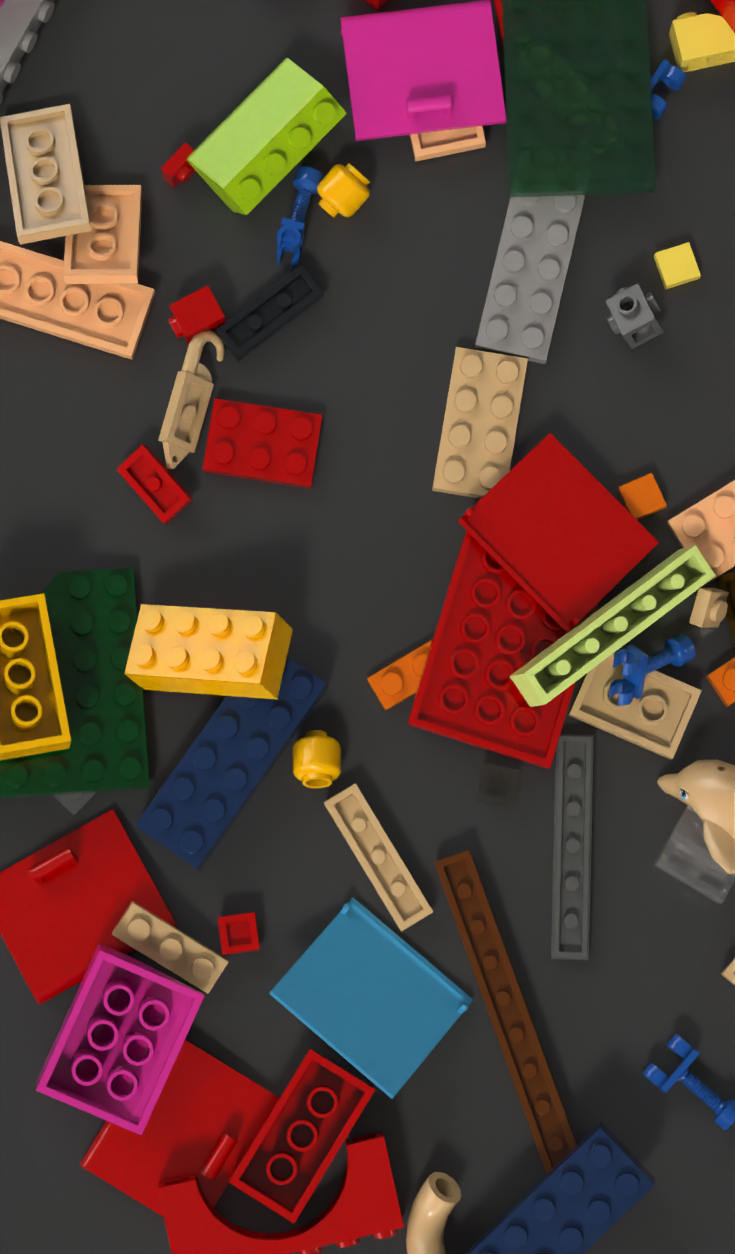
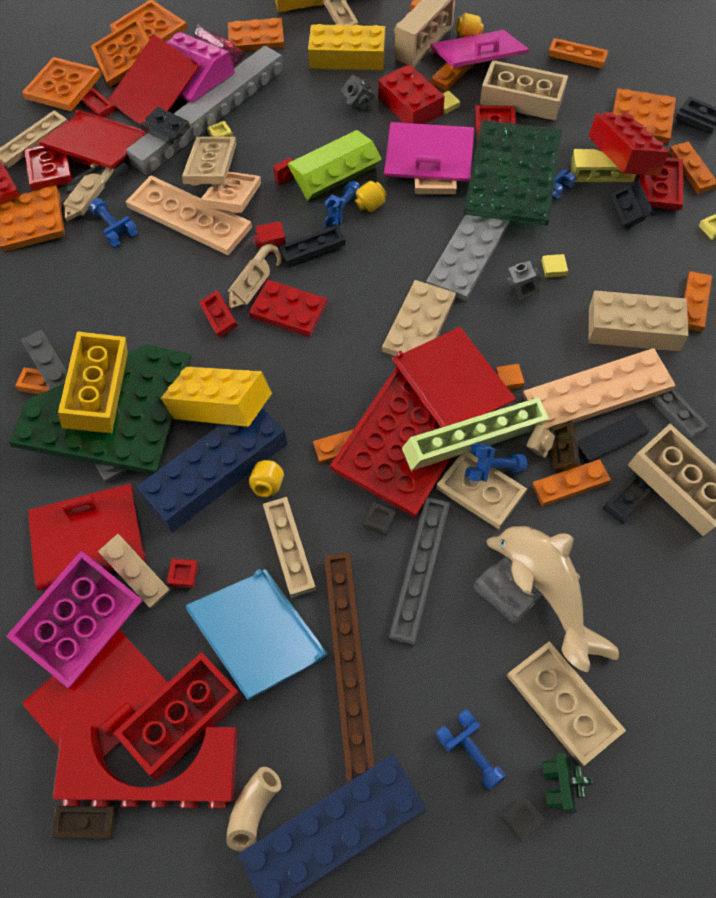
camera: 15 degrees right, 20 degrees down
(35, 90) = (219, 130): none -> light yellow tile

